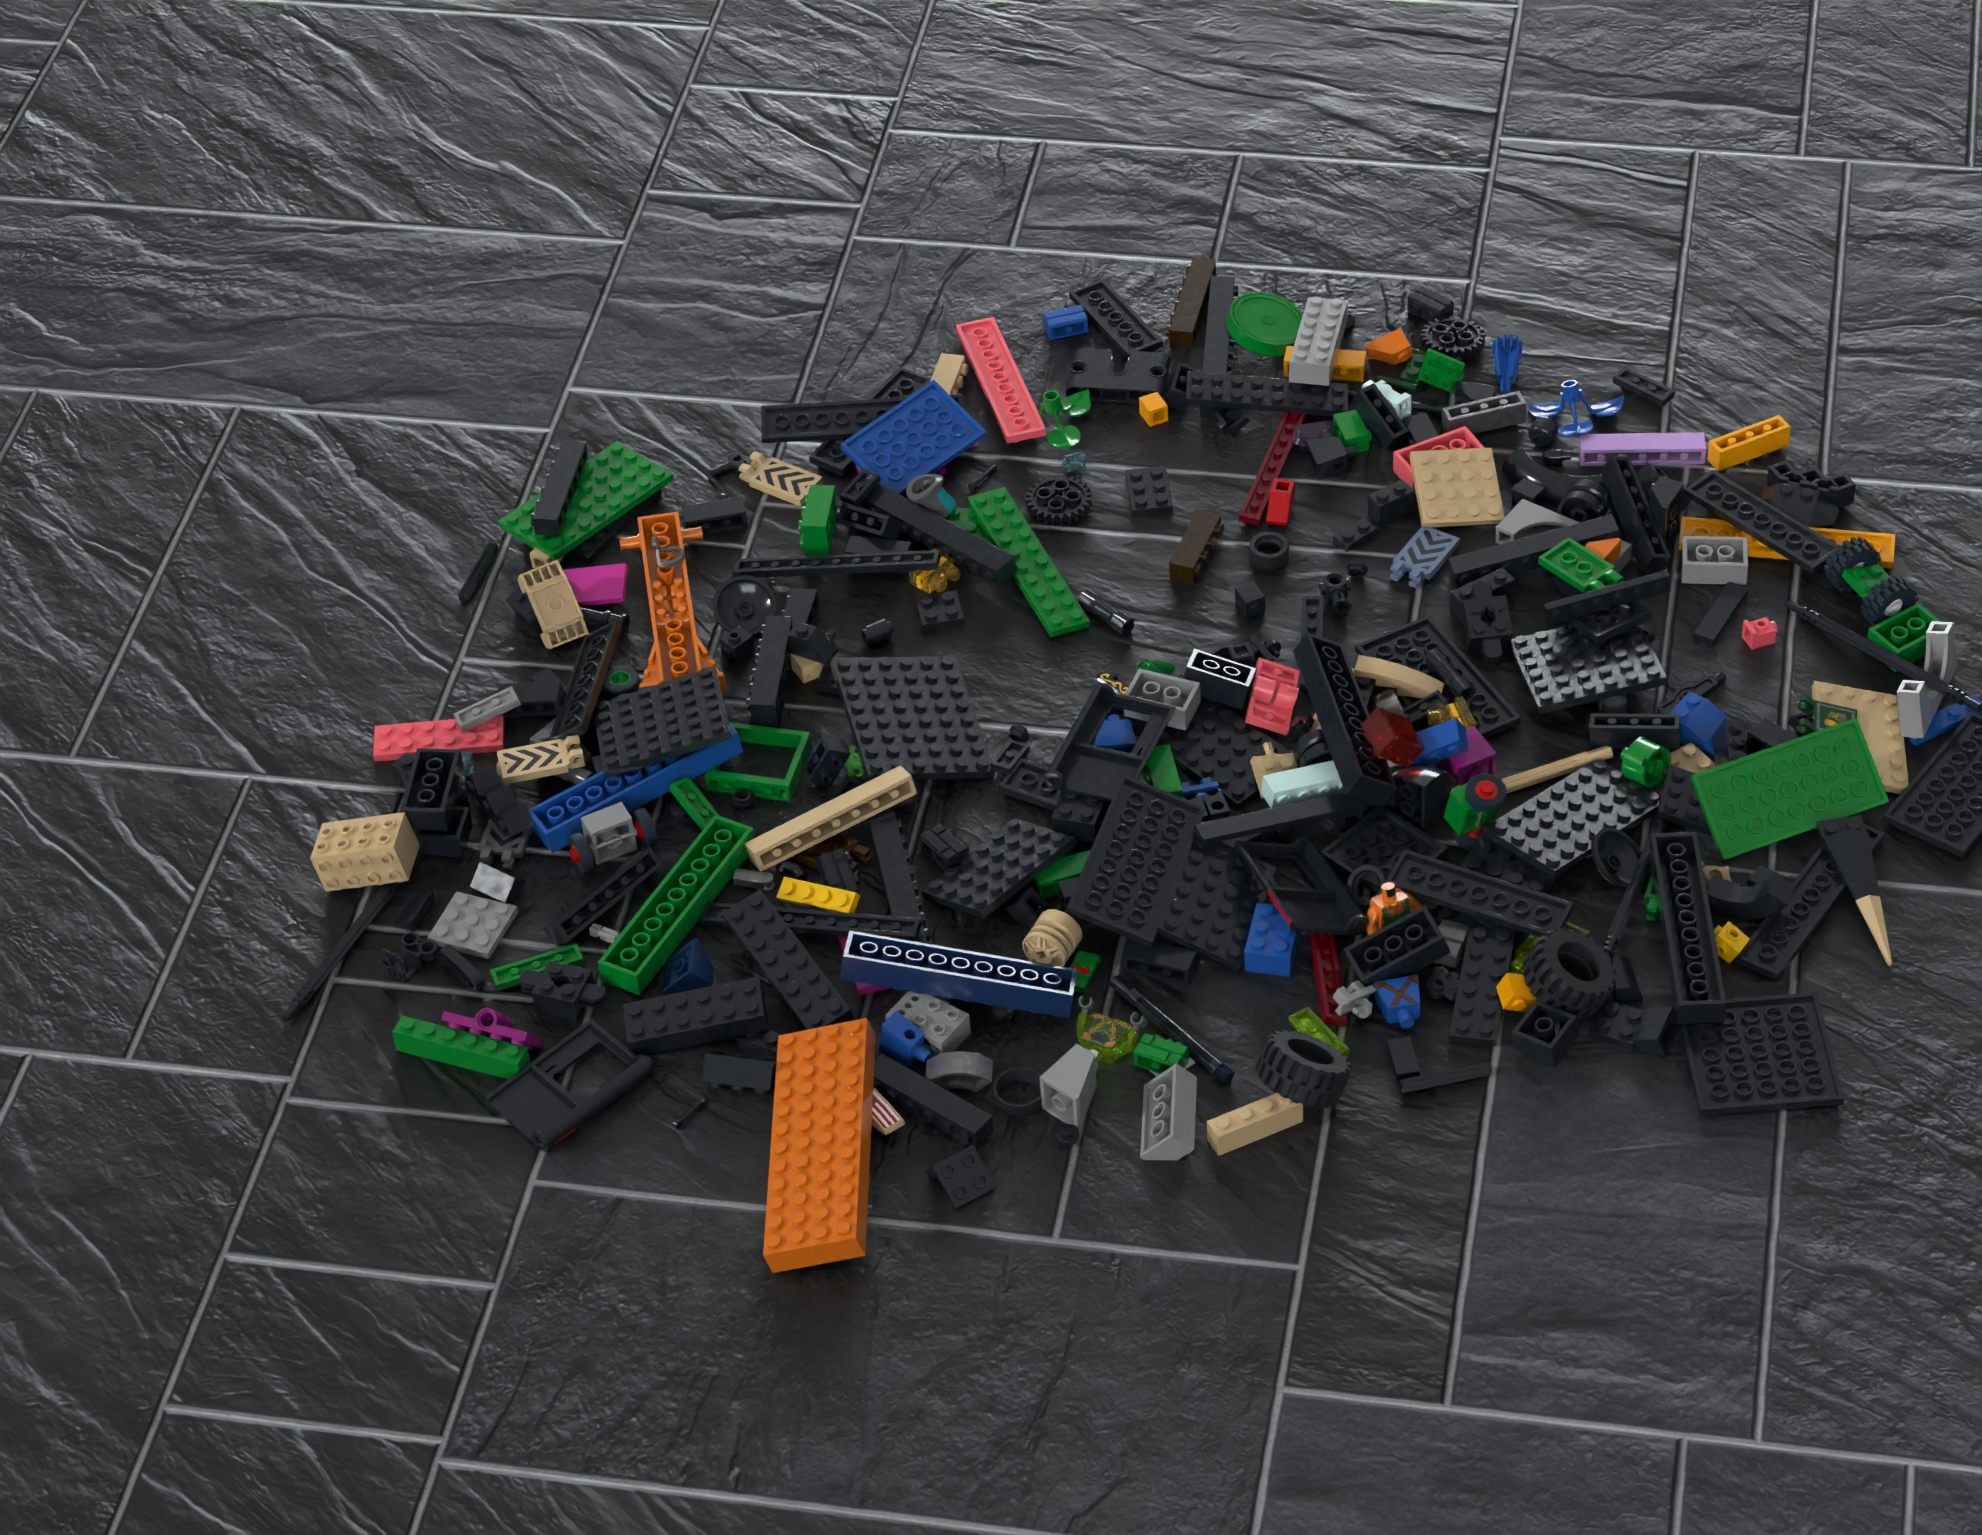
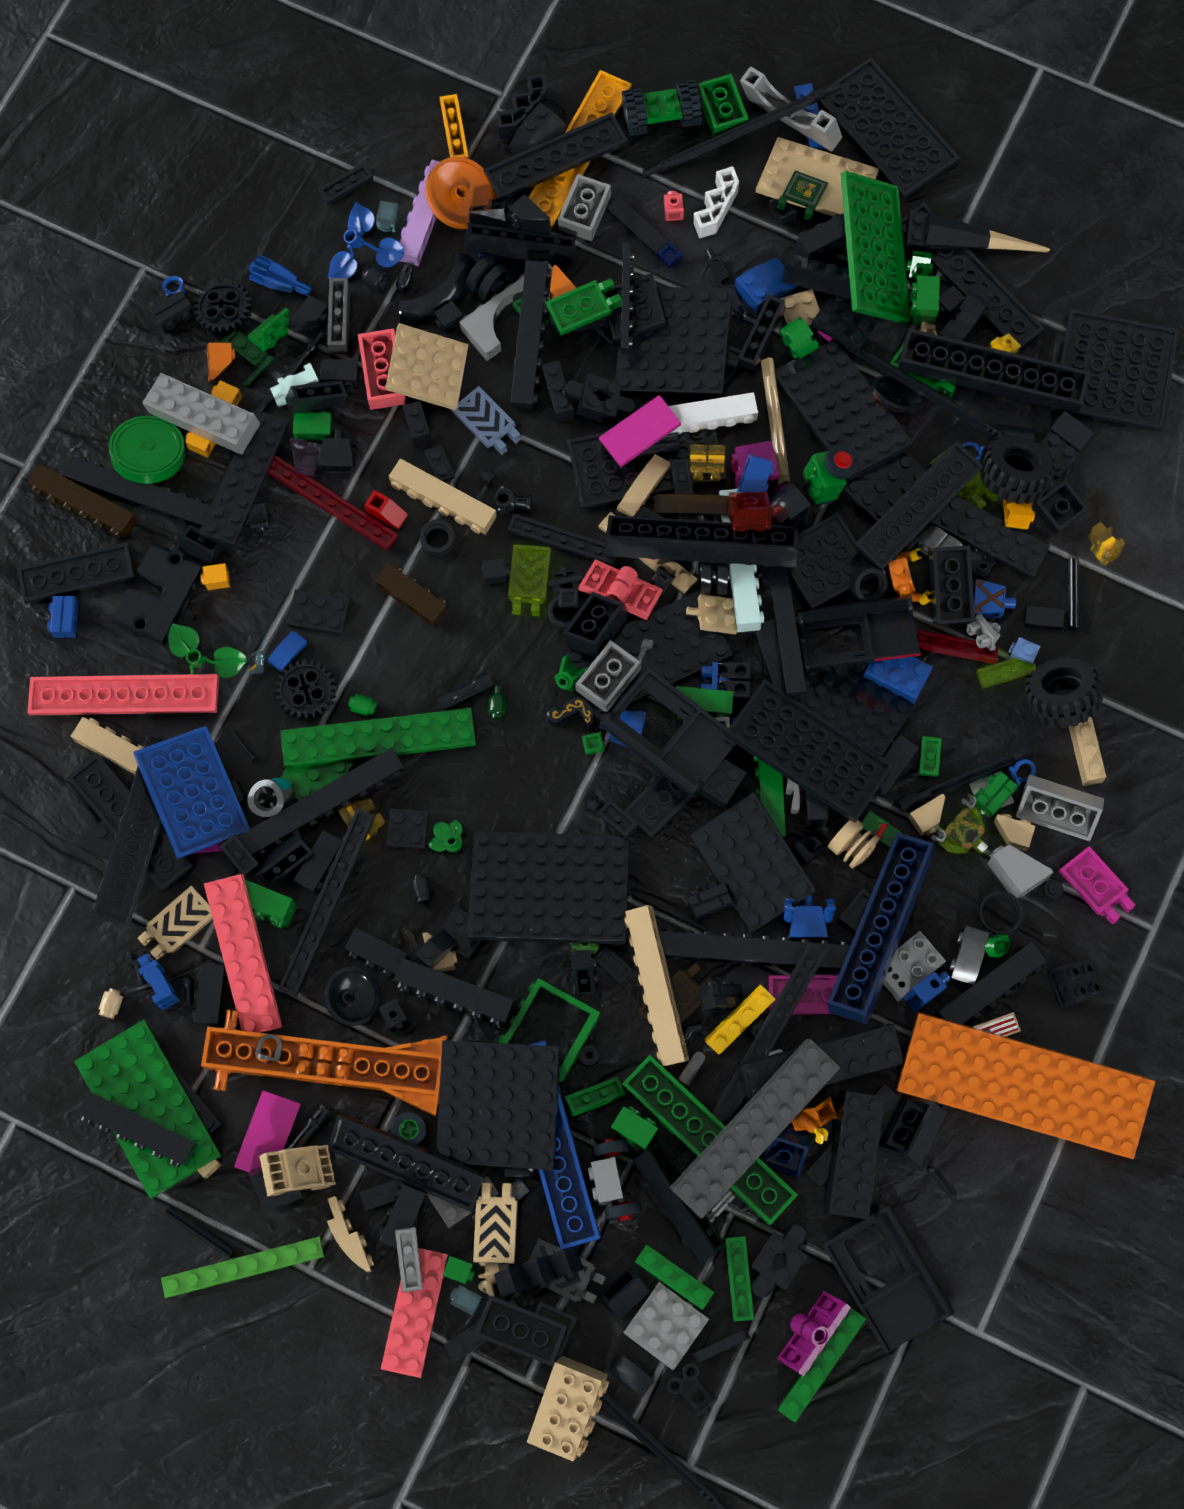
camera: 75 degrees left, 30 degrees up
(451, 611) = (242, 1267): none -> bright green plate
(485, 752) = (459, 1270): none -> green brick
(499, 667) = (351, 1243): none -> tan slope
(523, 913) = (674, 1277): none -> green brick
(670, 837) = (634, 1129): none -> green brick
(683, 454) = (110, 1003): none -> tan brick
(695, 911) = (754, 1128): none -> dark grey brick
(712, 474) = (153, 974): none -> blue hips
(722, 965) = (814, 1116): none -> orange torso
(758, 515) = (243, 954): none -> coral plate
(939, 640) = (444, 835): none -> green plate
(949, 926) = (808, 920): none -> blue torso
(978, 1088) = (997, 945): none -> green plate
(1059, 543) = (362, 705): none -> green brick
(1087, 1172) = (1097, 884): none -> dark pink tile
(1096, 476) = (286, 651): none -> blue slope
(1101, 638) = (497, 704): none -> dark green plant
(1114, 1002) = (928, 816): none -> tan slope
(1121, 1084) = (1015, 832): none -> tan slope
(1185, 991) = (930, 756): none -> green plate
(1197, 1064) = (1017, 780): none -> blue piece
(1214, 727) = (646, 645): none -> clear hand
(1265, 624) = (529, 577): none -> clear neon green tile
(1316, 542) = (442, 496): none -> tan brick
(1348, 1039) = (1024, 650): none -> medium blue bracket
(1457, 651) = (640, 431): none -> dark pink tile
(1459, 307) = (170, 279): none -> blue piece
(1507, 704) = (715, 413): none -> white brick
(1516, 1081) = (1104, 544): none -> clear yellow hips
(1621, 421) = (387, 216): none -> clear light blue brick
(1680, 445) = (455, 187): none -> orange dish
(1697, 643) = (669, 254): none -> clear blue plate
(1749, 851) = (925, 300): none -> green brick
(1781, 661) = (717, 203): none -> white brick
(1797, 845) = (919, 265): none -> green brick

